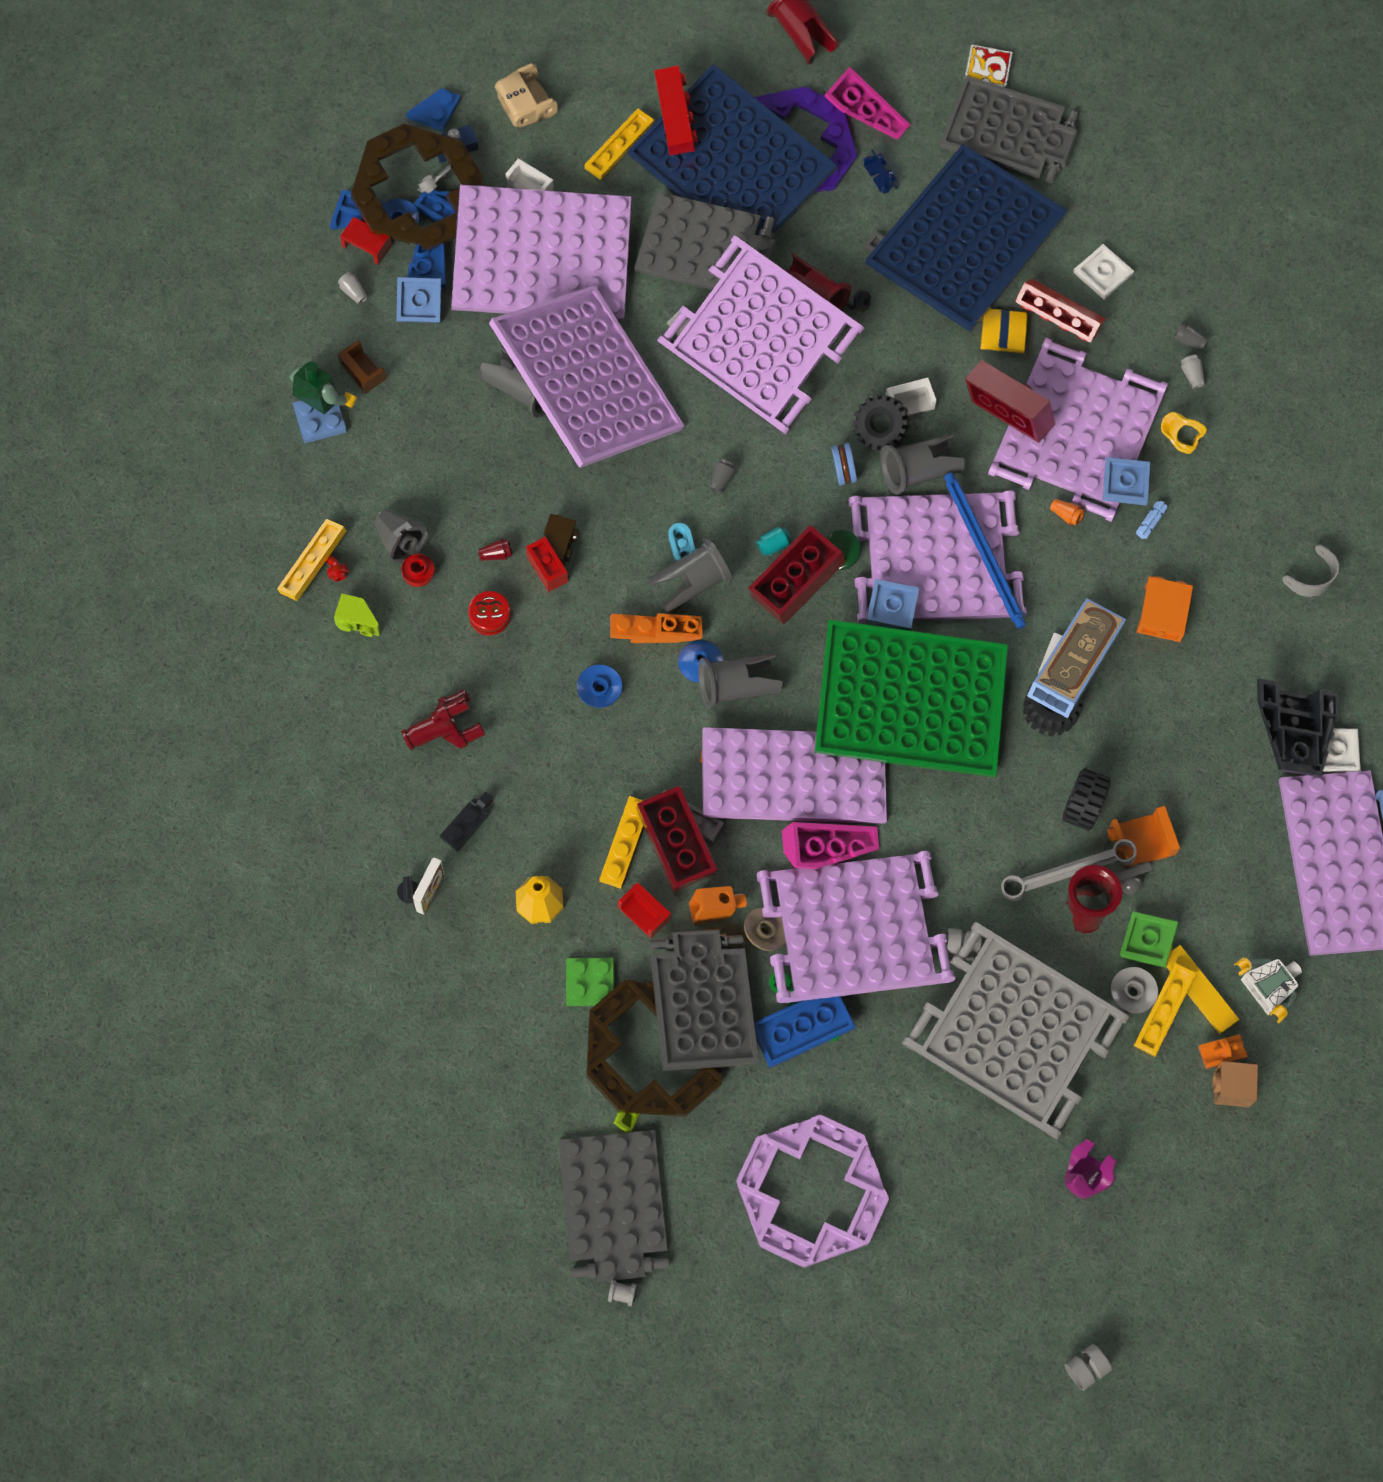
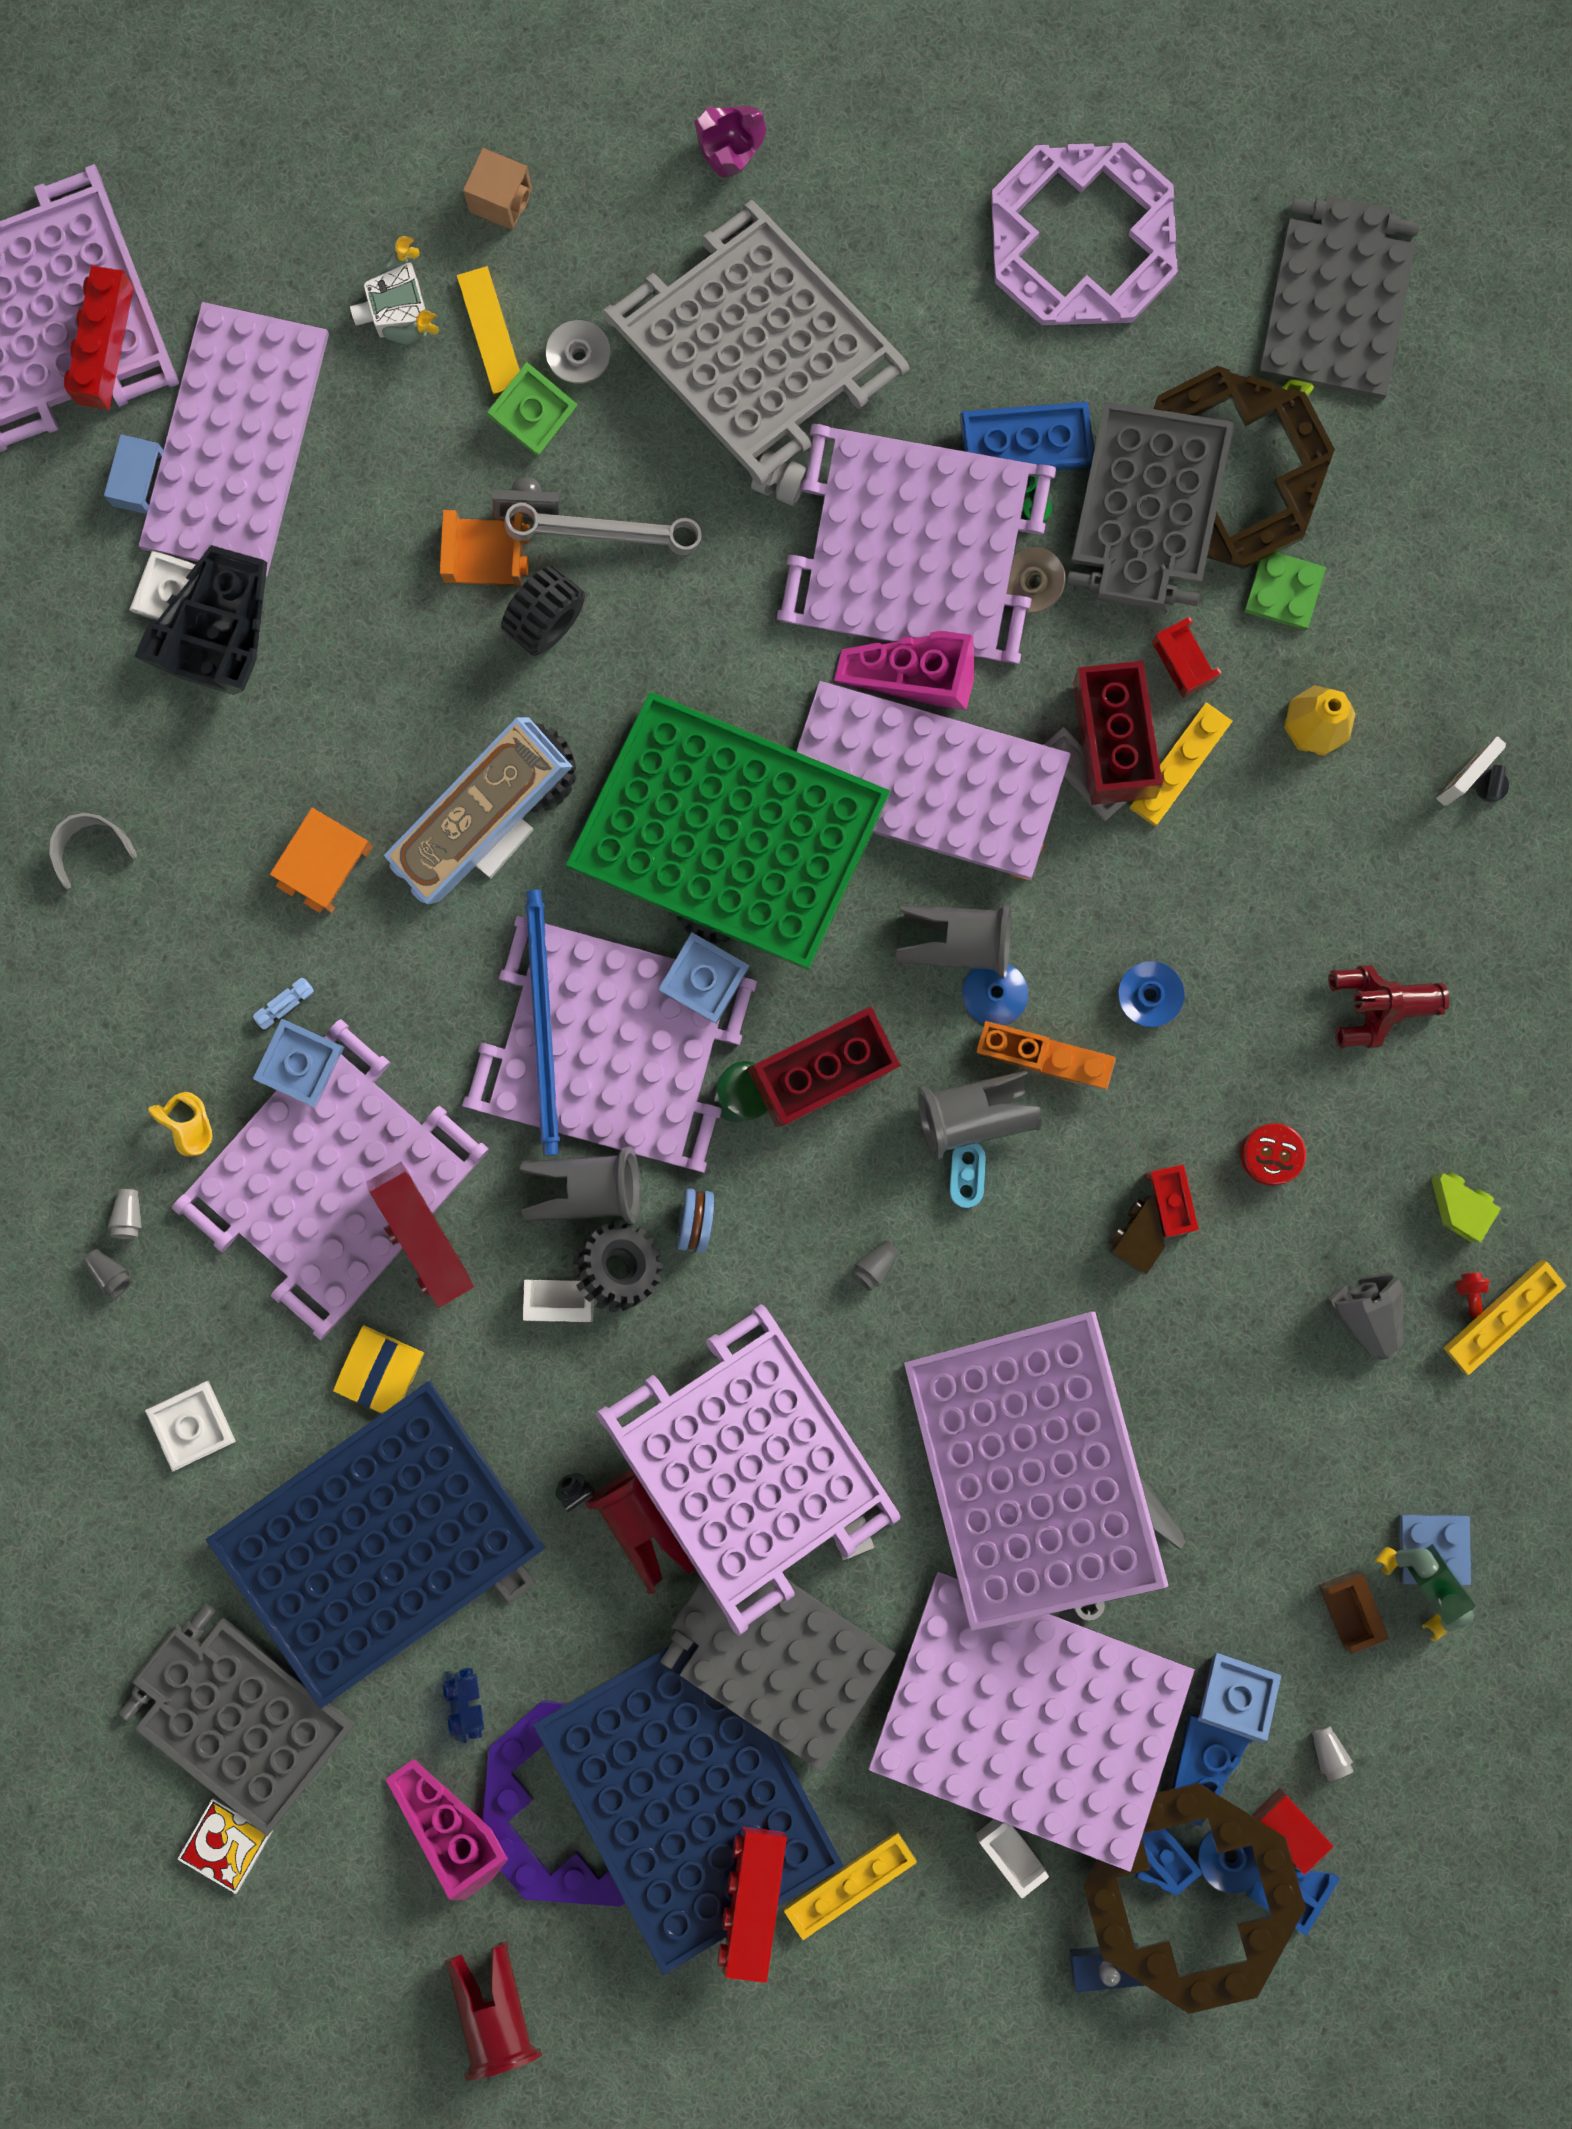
camera: 160 degrees left, 15 degrees up
(417, 570) = (1358, 1250): red plate -> none
(429, 182) = (1172, 1900): light grey plate -> none
(435, 110) = (1117, 2043): blue wing -> none
(467, 822) = (1387, 857): black hinge -> none
(497, 550) = (1232, 1248): dark red cone -> none
(524, 97) = (972, 2018): tan piece -> none
(622, 1293) = (1362, 183): light grey bush -> none
(714, 904) = (1102, 630): orange torso -> none
(773, 541) = (835, 1137): teal brick -> none
(1060, 310) = (282, 1372): brick -> none
(1067, 511) = (398, 1052): orange cone -> none
(1092, 881) = (593, 435): dark red piece -> none
(1165, 1009) = (545, 316): yellow tile -> none
(1226, 1049) = (496, 236): orange hips -> none

